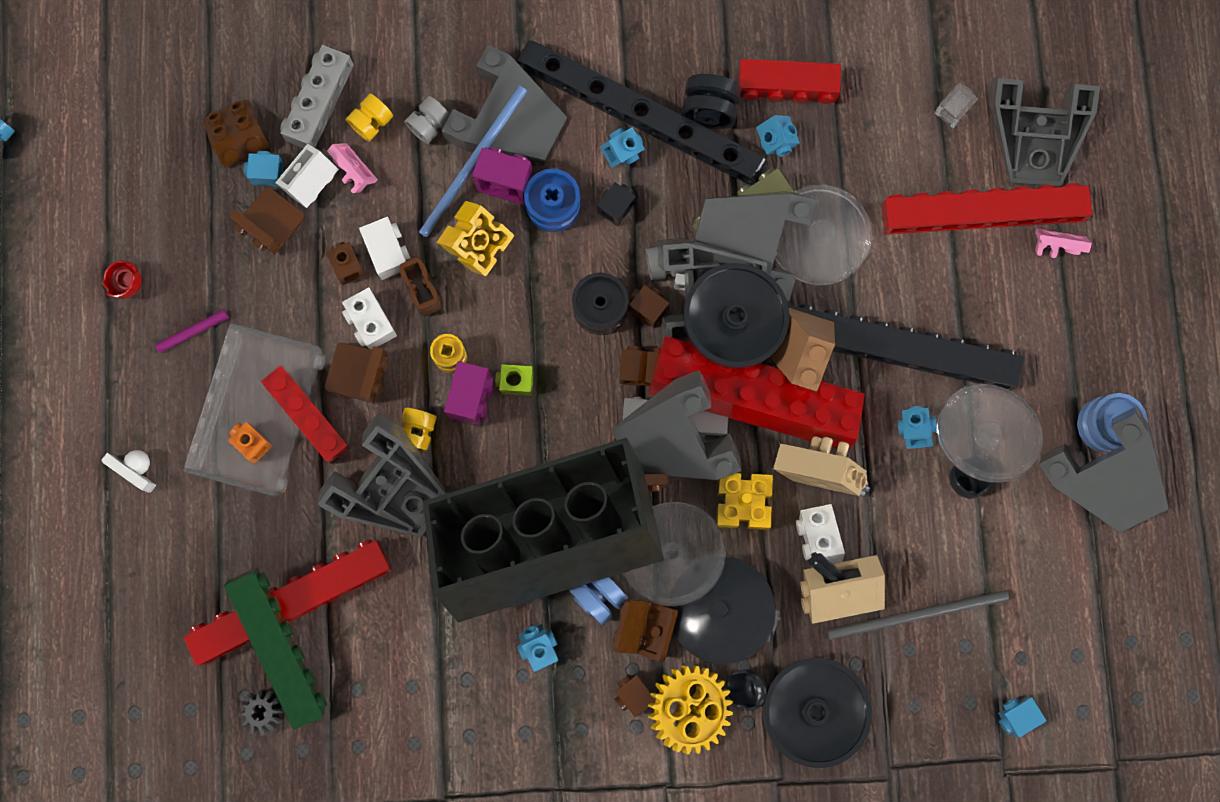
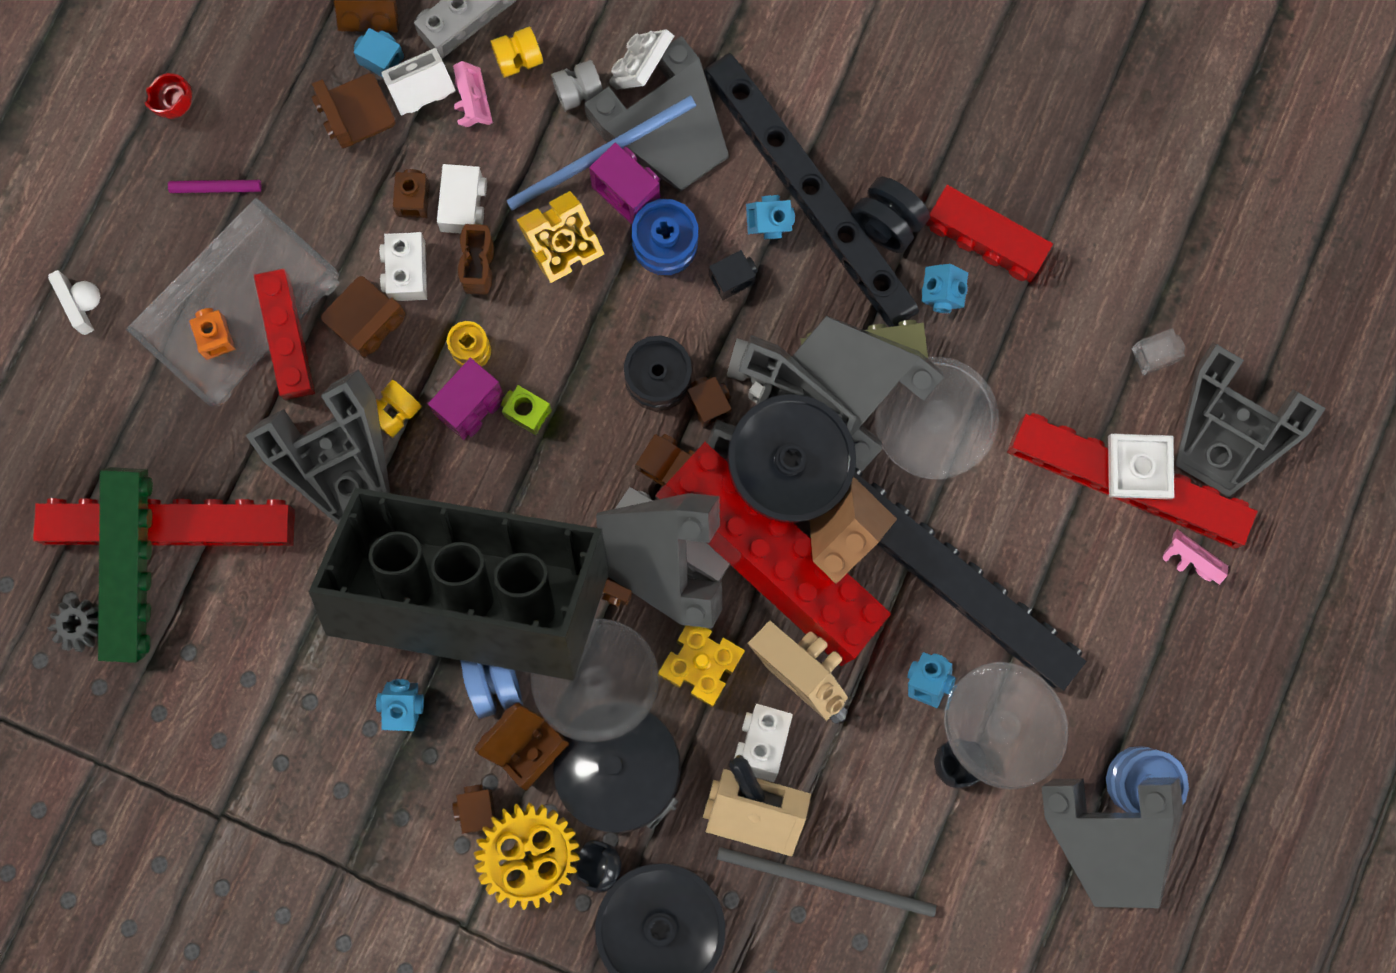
camera: 20 degrees right, 0 degrees up
(465, 77) = (640, 60): none -> white tile
(989, 194) = (1141, 466): none -> white plate

